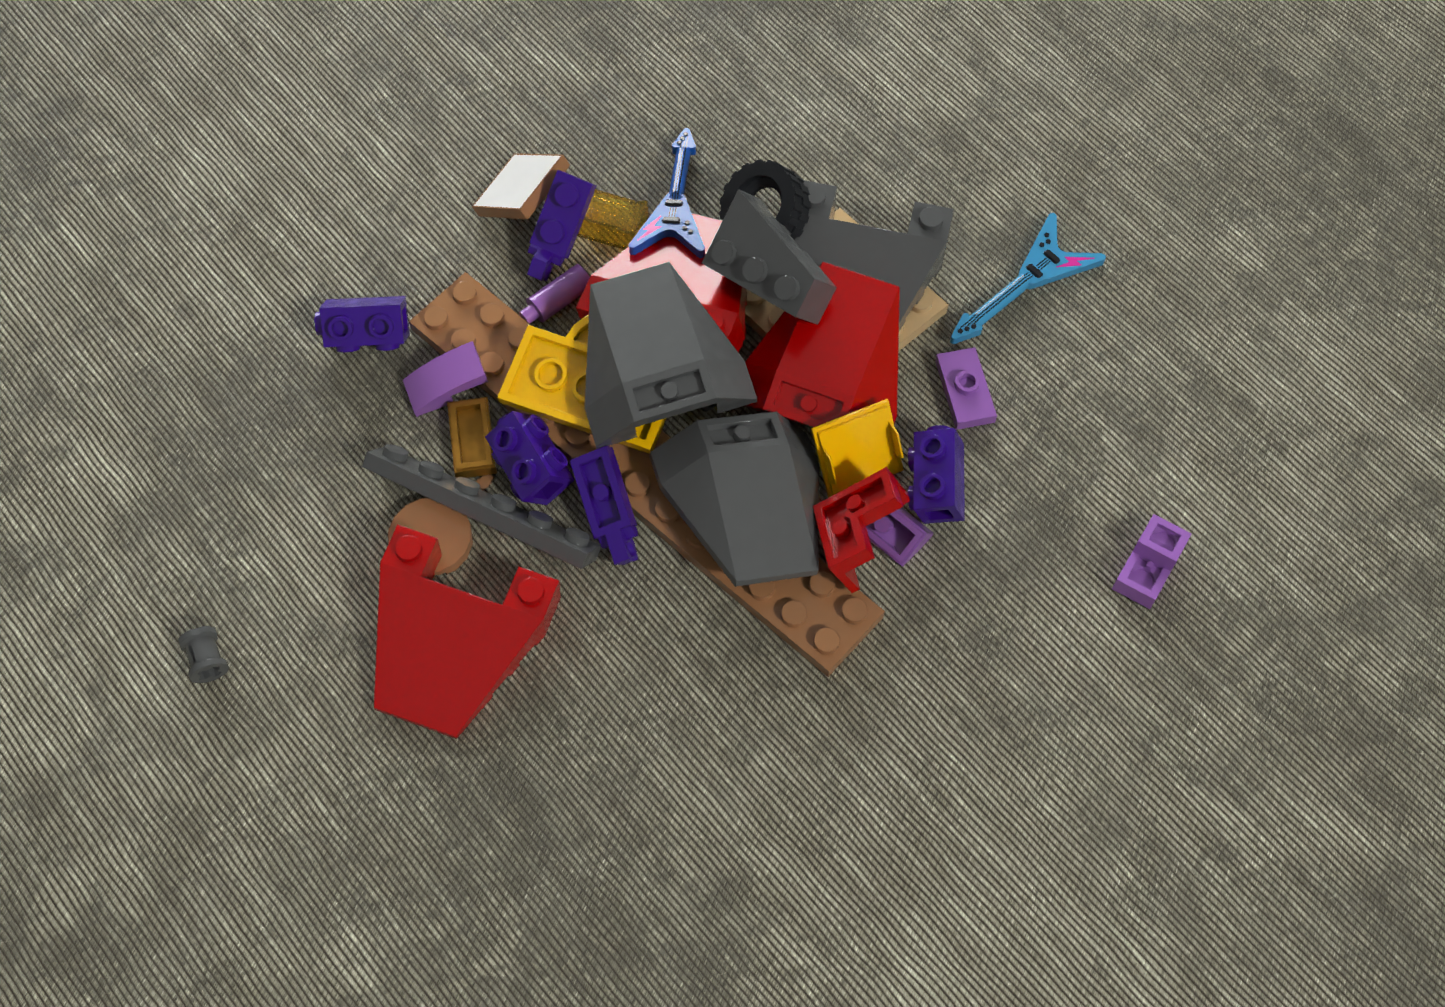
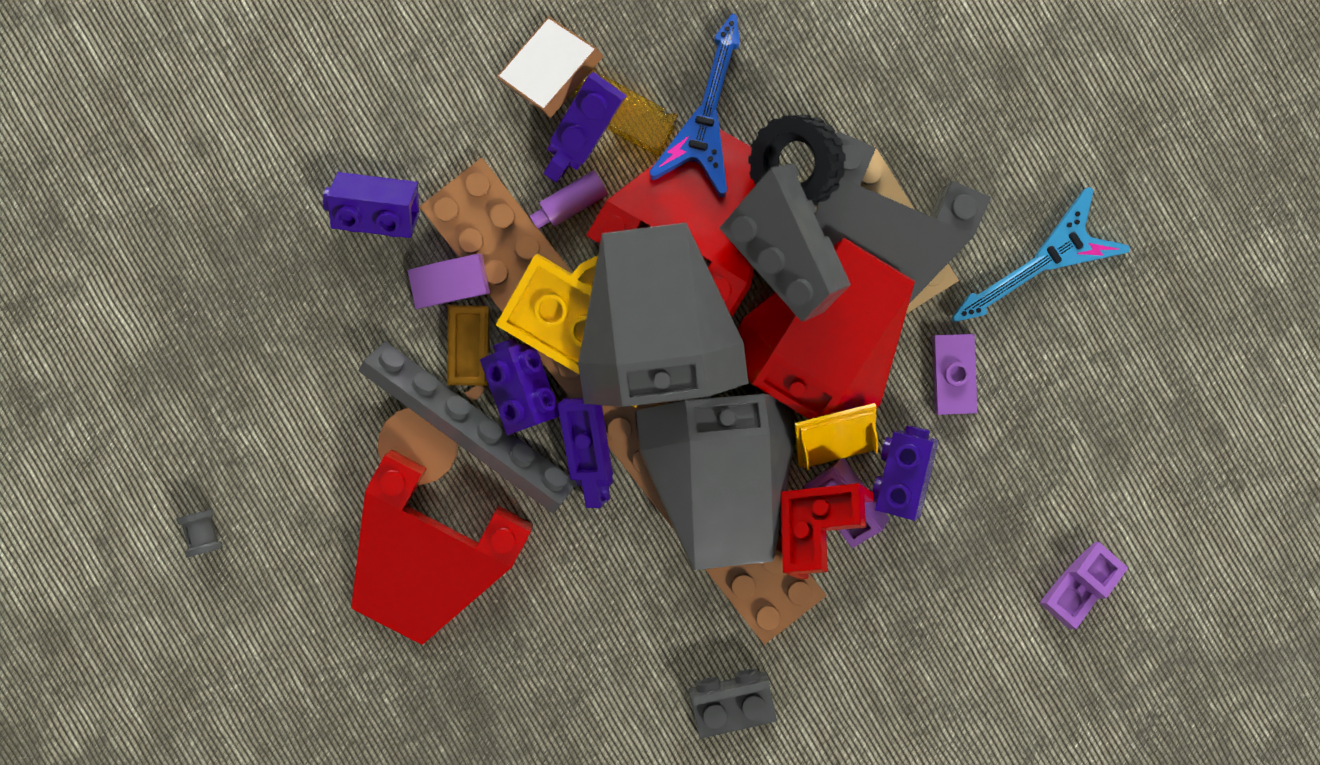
camera: 10 degrees right, 25 degrees up
(806, 738) = (732, 703): none -> dark grey bracket

